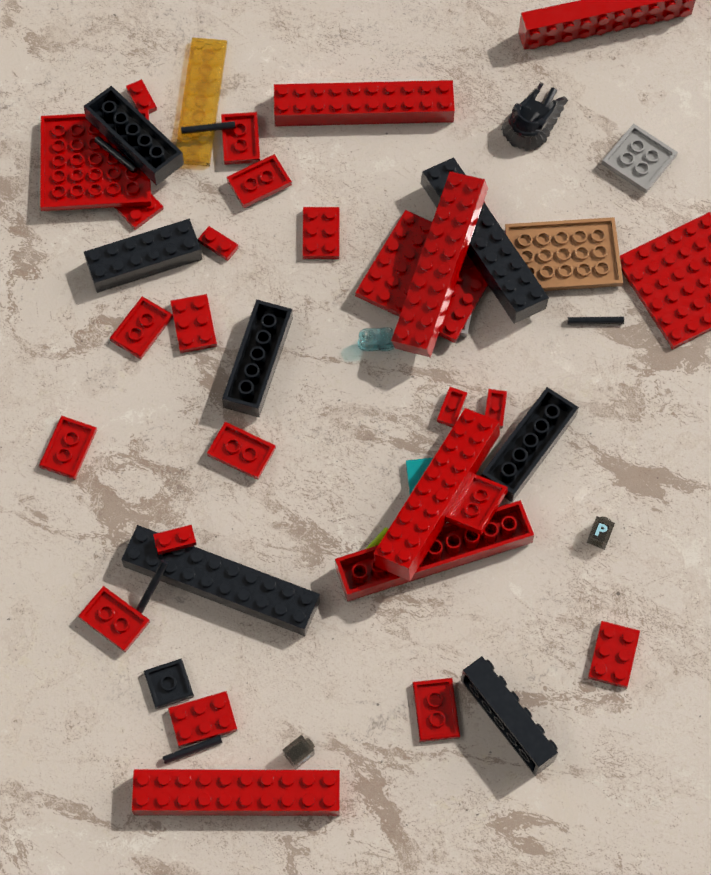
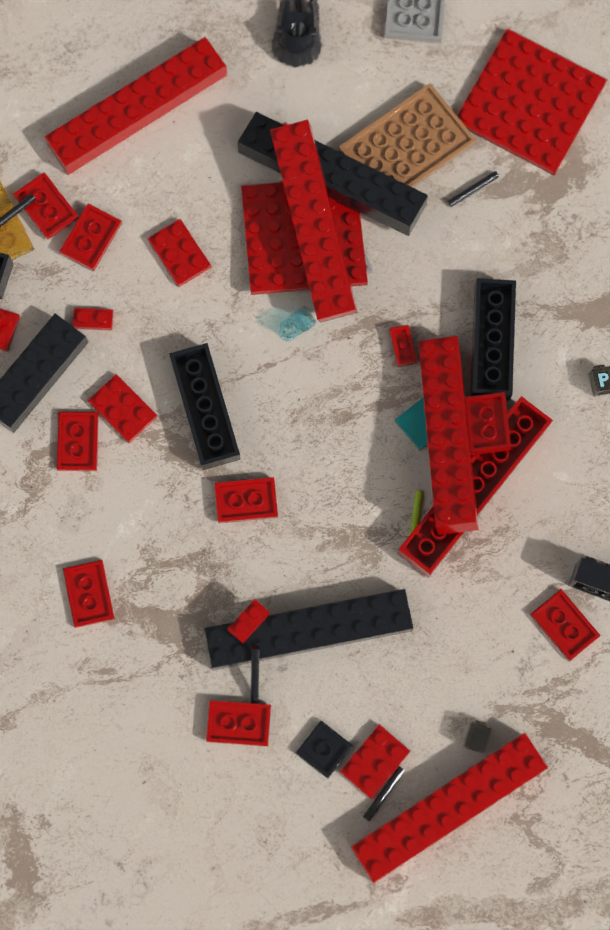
camera: 35 degrees left, 10 degrees up
(496, 405) = (440, 321): red plate -> none

